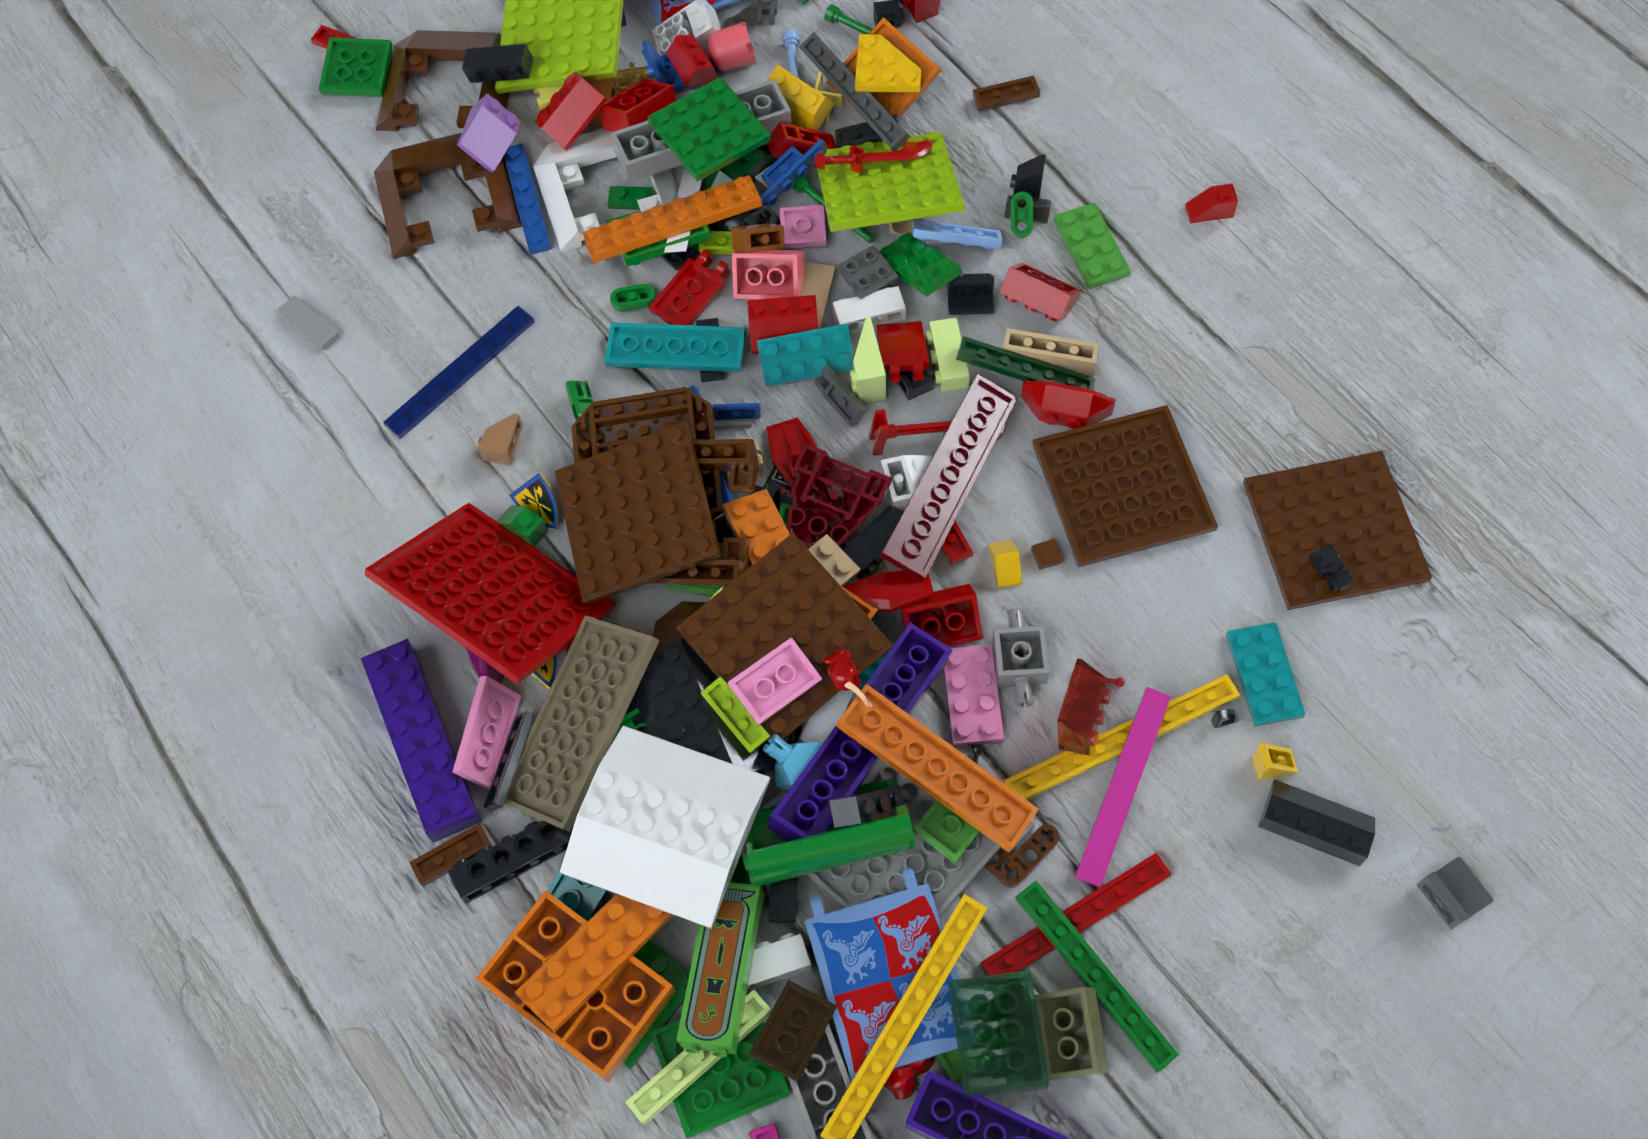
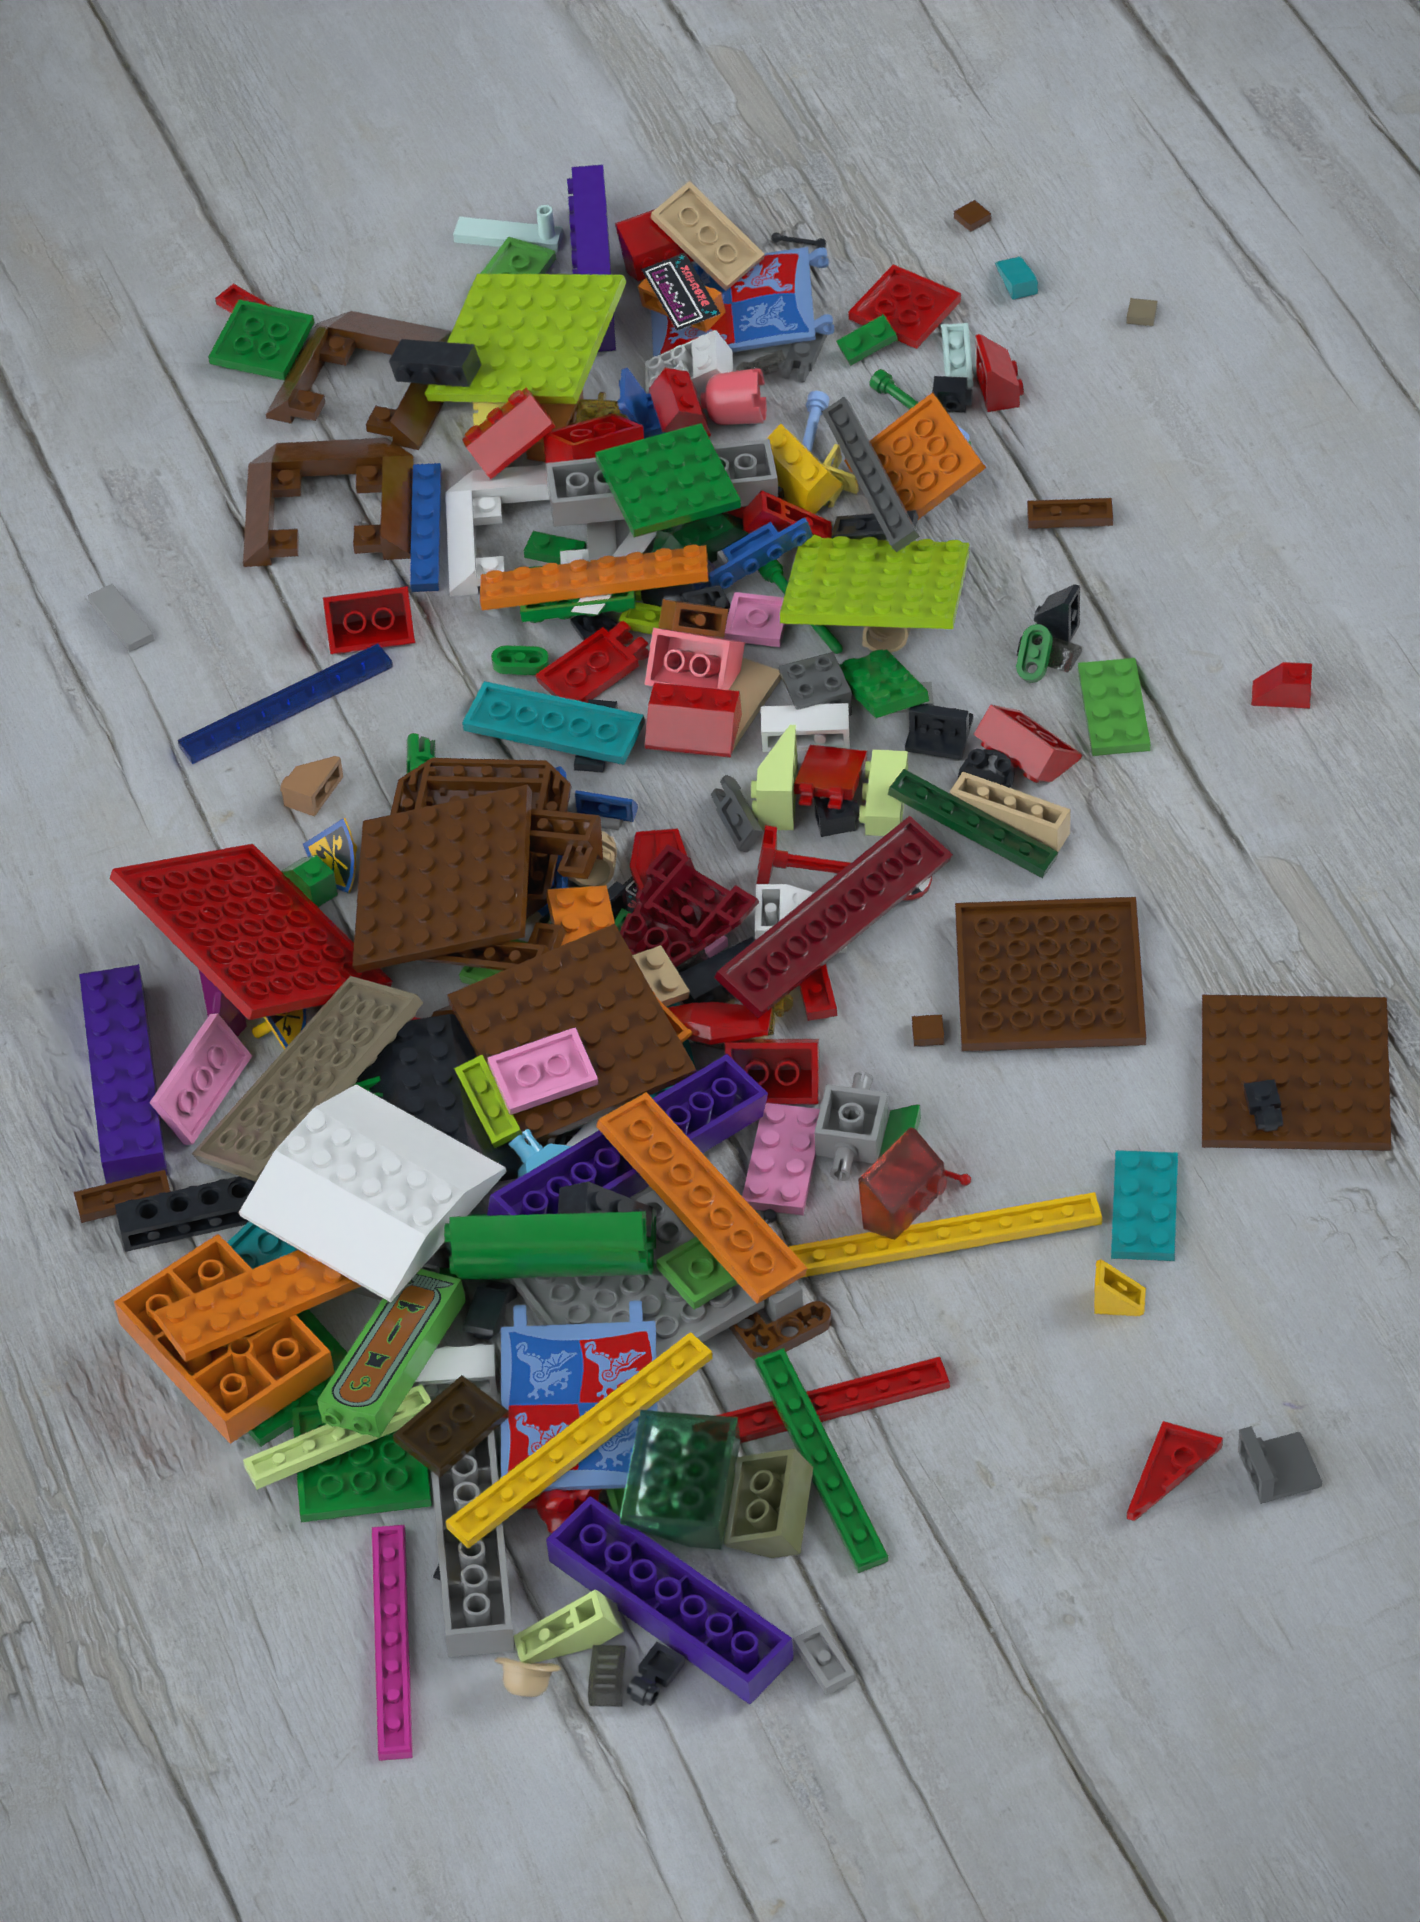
camera: 15 degrees right, 15 degrees down
(488, 132) = (400, 440): medium lavender slope -> none
(505, 286) = (368, 618): none -> red slope
(508, 761) = (217, 1114): black tile -> none
(805, 354) = (704, 756): teal plate -> none
(844, 672) = (624, 1077): red animal -> none
(857, 156) = (844, 549): red sword -> none
(884, 67) = (913, 451): yellow plate -> none
(955, 233) = (935, 657): light blue plate -> none
(1005, 563) = (873, 1032): yellow slope -> none
(1018, 317) = (990, 766): none -> black dish
(1059, 653) = (898, 1123): none -> green slope
(1066, 404) = (1011, 870): red wedge -> none
(1122, 787) = (923, 1280): dark pink tile -> none
(1224, 718) = (1075, 1237): black tile -> none
(1318, 823) = (1141, 1365): black slope -> none
(1370, 905) = (1172, 1459): none -> red wing

